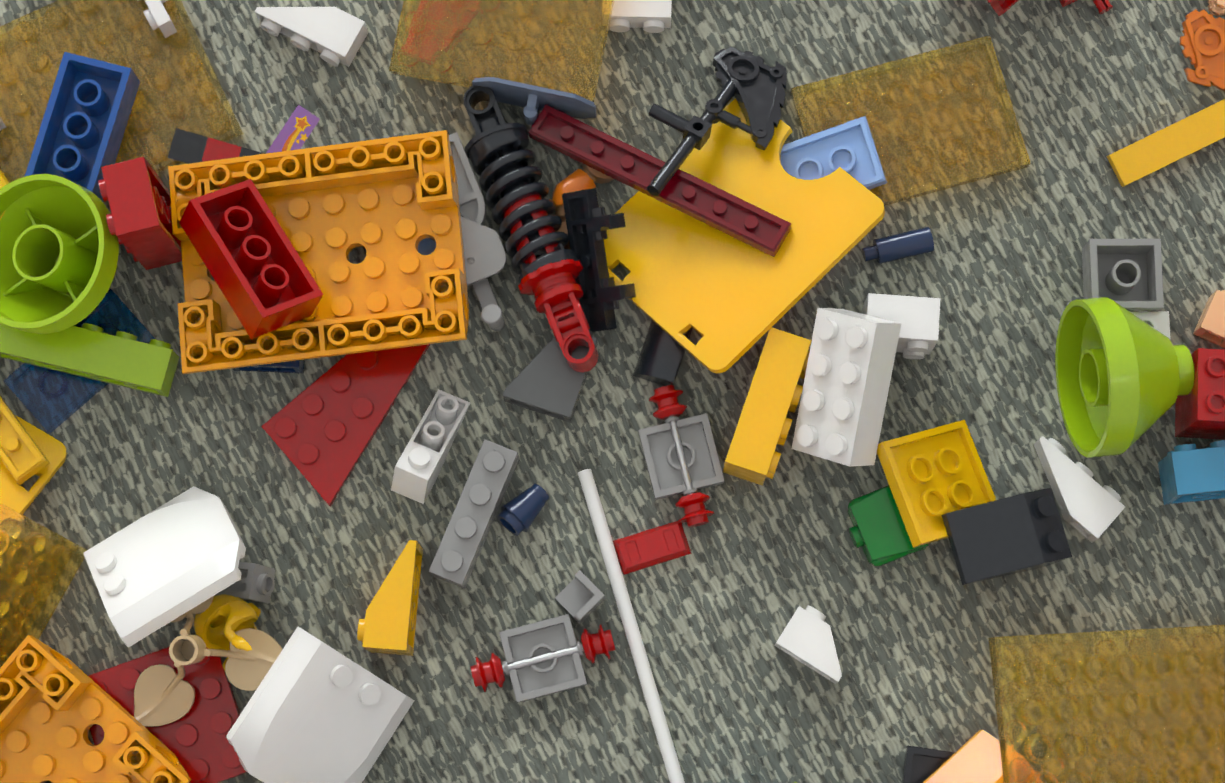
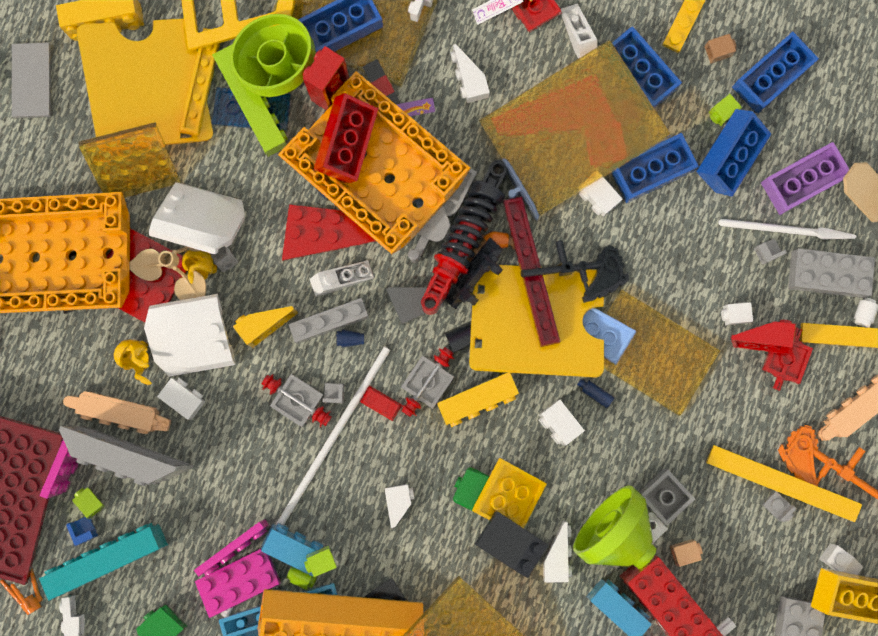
camera: 45 degrees right, 5 degrees up
(846, 386) = (512, 424): white brick -> none

